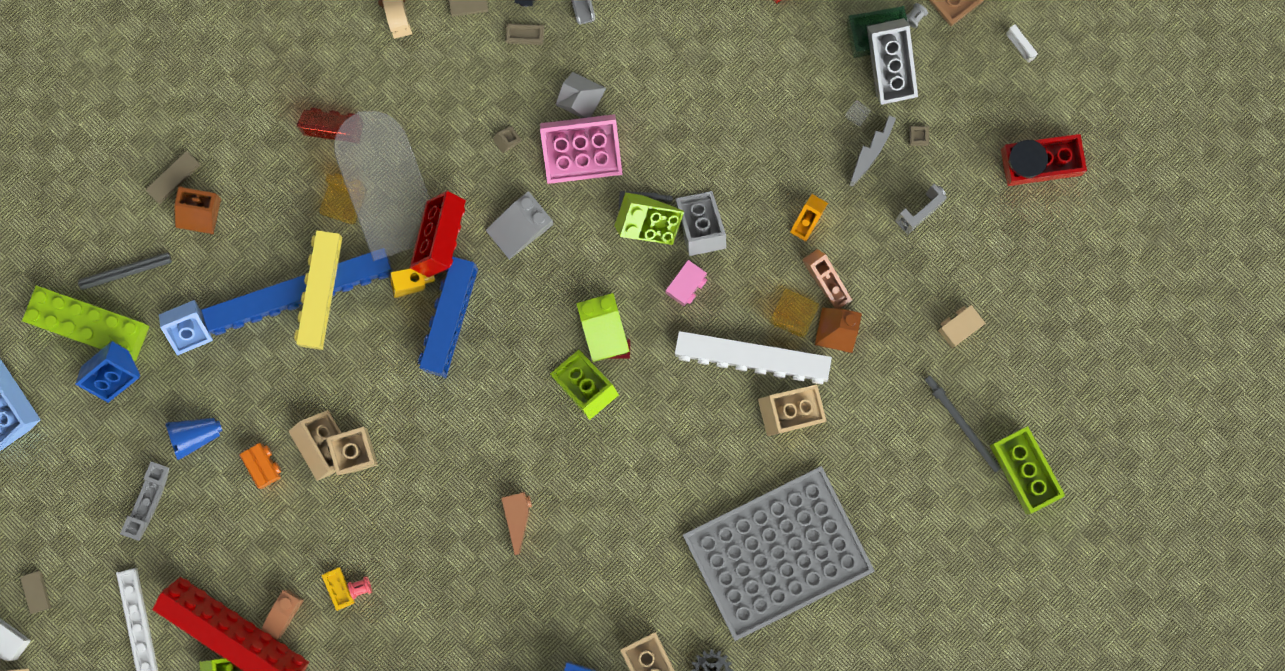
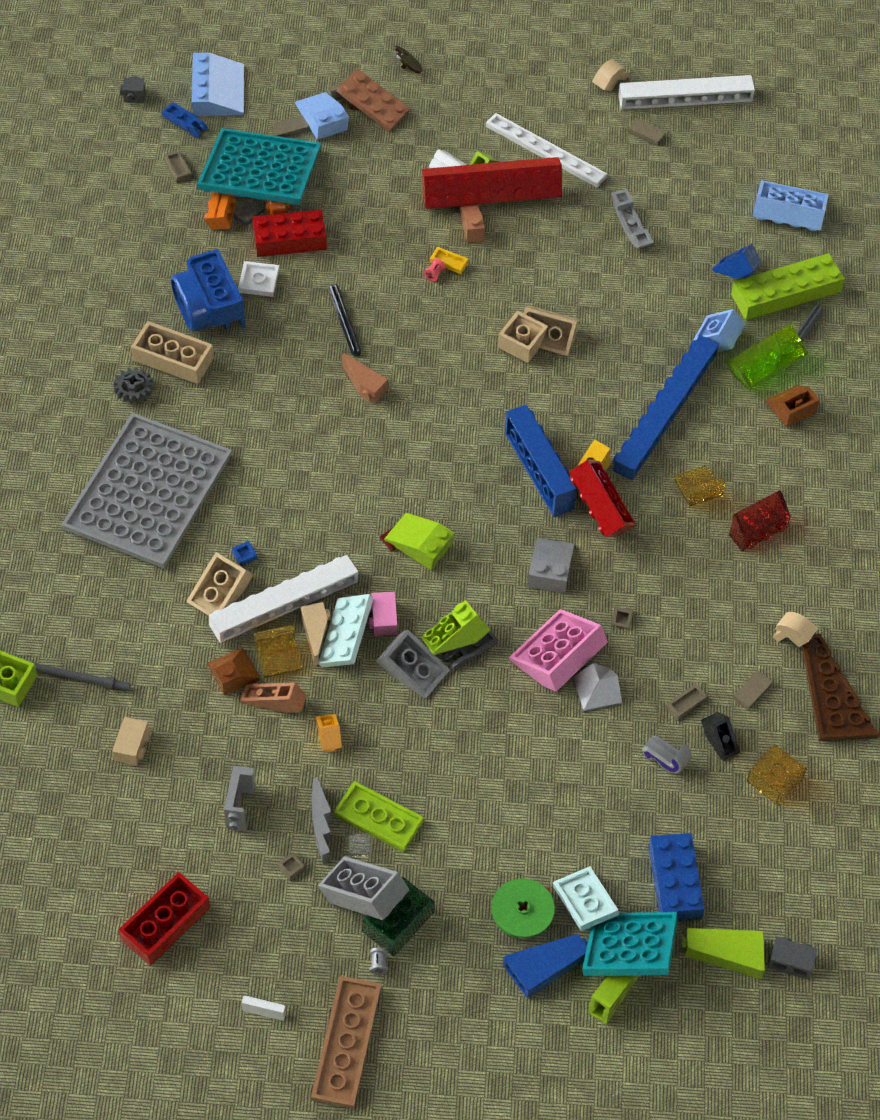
camera: 135 degrees right, 25 degrees down
(173, 177) = (834, 415): dark tan tile -> none
(174, 267) = (767, 357): none -> clear neon green slope
(192, 434) = (644, 270): blue cone -> none
(260, 465) = (577, 290): orange brick -> none
(319, 290) = (650, 406): light yellow brick -> none
(381, 181) = (682, 506): clear piece -> none
(479, 598) = (344, 320): none -> black axle
(584, 384) = (396, 492): lime slope -> none
(728, 289) = (345, 631): none -> light aqua plate
(746, 314) = (315, 624): none -> tan slope
(749, 427) = (244, 553): none -> blue plate
(825, 124) = (379, 816): none -> lime tile
(1028, 158) = (178, 896): black tile -> none

